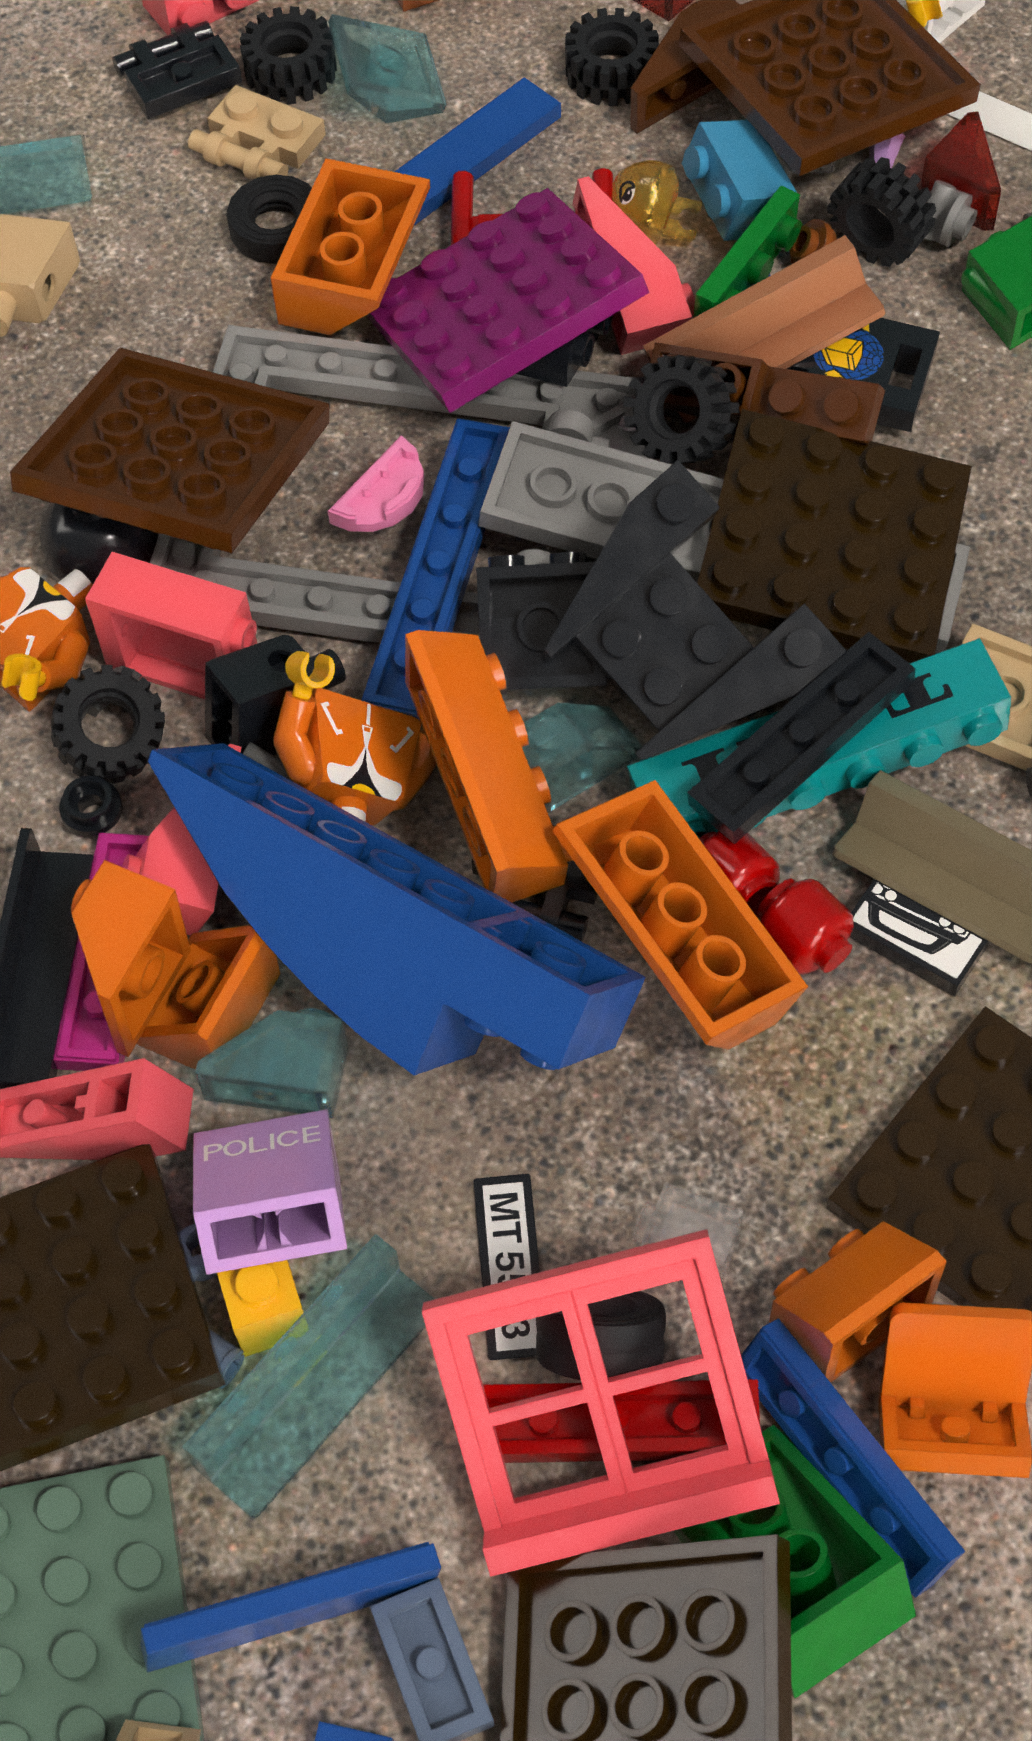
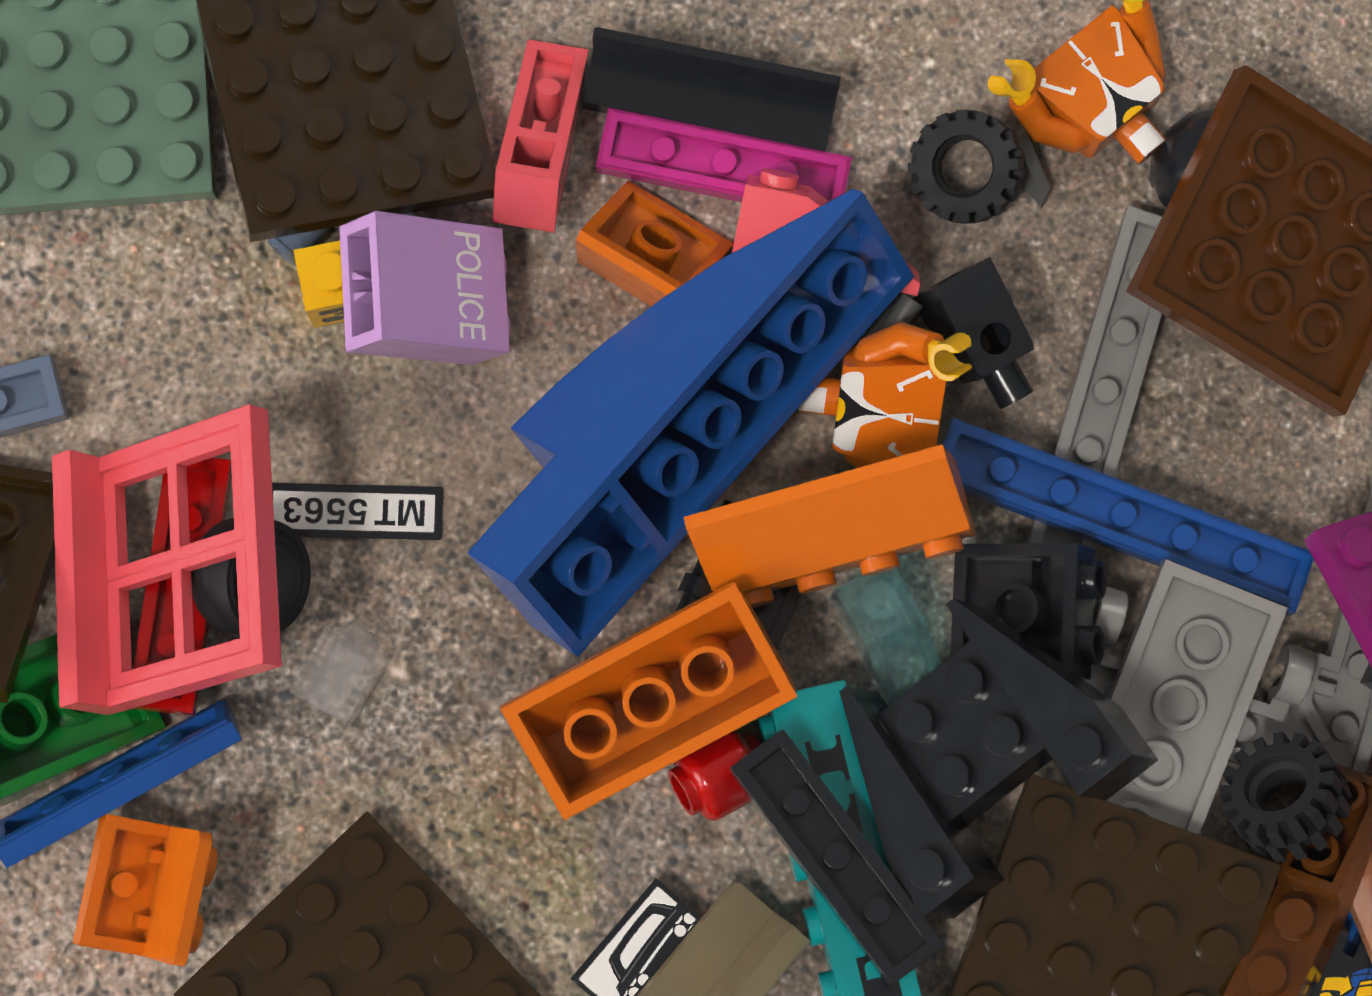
camera: 85 degrees right, 20 degrees up
(87, 792) = (887, 133): black plate -> none
(131, 945) = (679, 166): orange slope -> none
(166, 622) = (1066, 234): coral window -> none
(279, 1064) = (569, 313): clear light blue slope -> none
(286, 1606) = (52, 285): blue tile -> none
(310, 1380) = (265, 327): clear light blue panel -> none
(383, 492) = (1229, 468): bright pink tile -> none
(807, 924) = (650, 836): red head -> none
(846, 1303) = (253, 812): orange slope -> none

